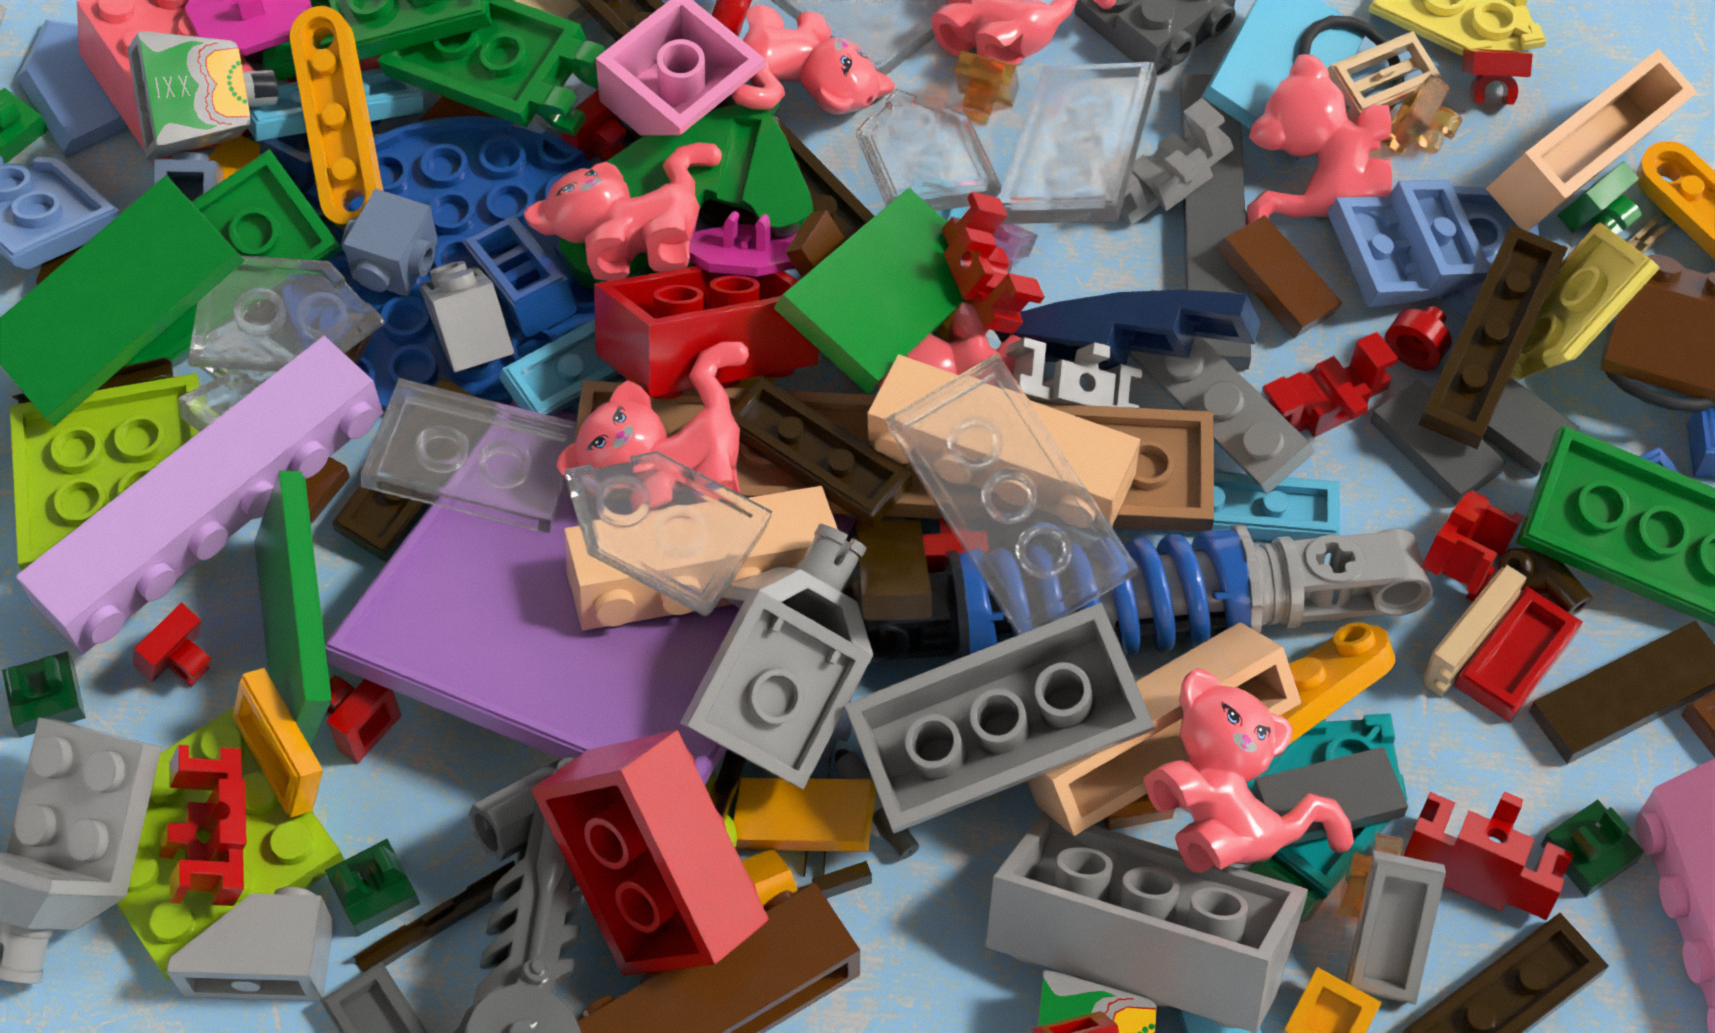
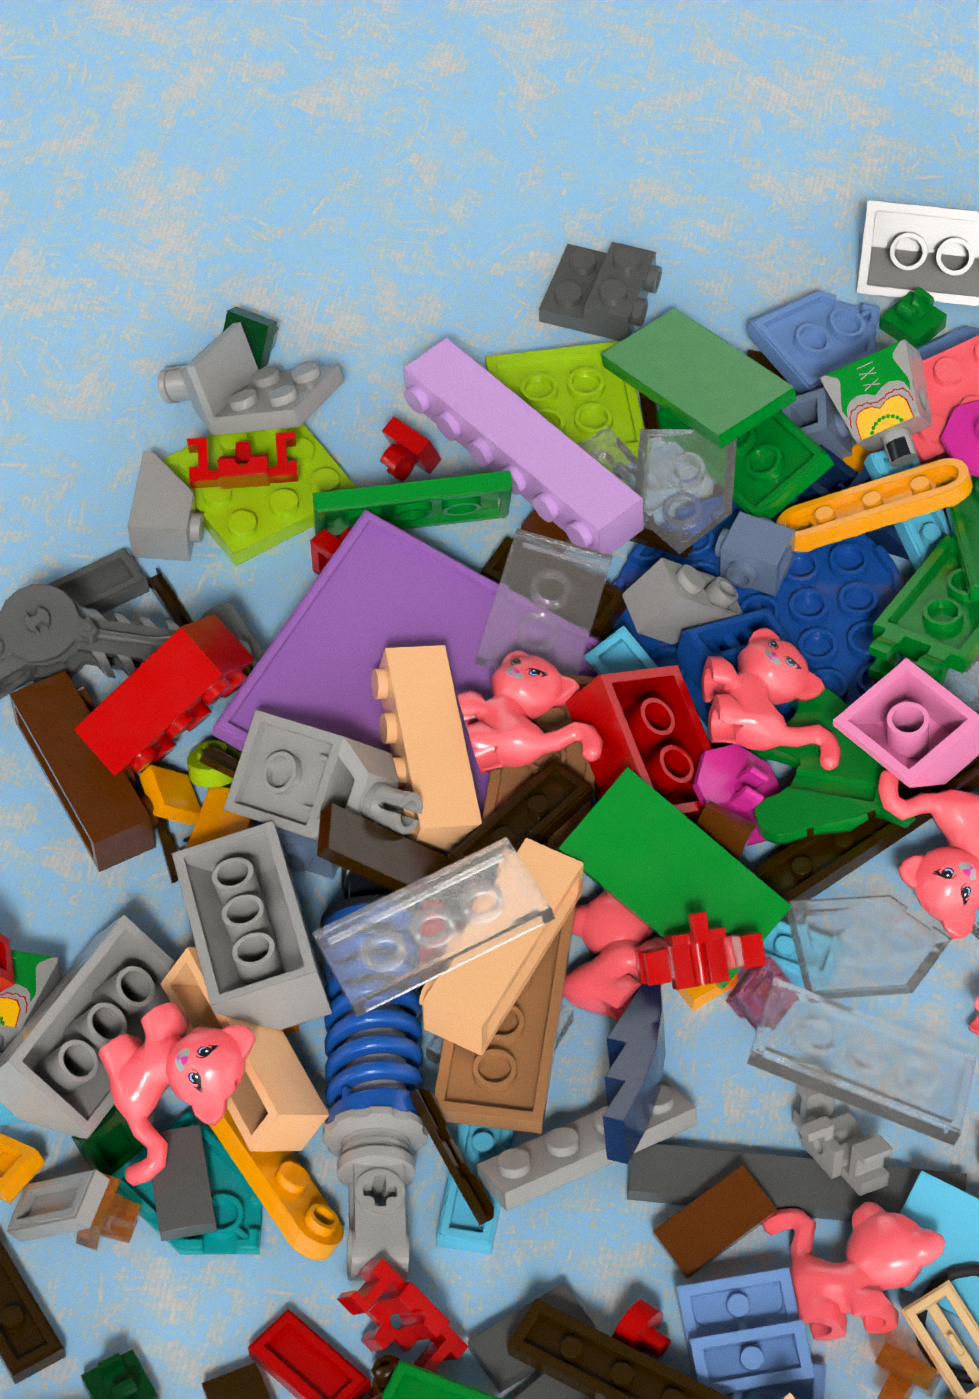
camera: 95 degrees right, 5 degrees down
(43, 690) = (383, 384): dark green tile -> none
(277, 743) = (298, 503): light orange tile -> none
(372, 887) = (208, 575): dark green tile -> none
(666, 526) = (427, 700): clear tile -> none
(983, 83) = (947, 1002): clear orange tile -> none
(1104, 389) = (579, 1026): light grey piece -> none
(1285, 492) = (466, 1182): none -> dark brown piece
(1333, 393) = (586, 1248): red piece -> none
(1472, 630) = (325, 1319): tan tile -> none
(1488, 869) = (128, 1270): red piece -> none

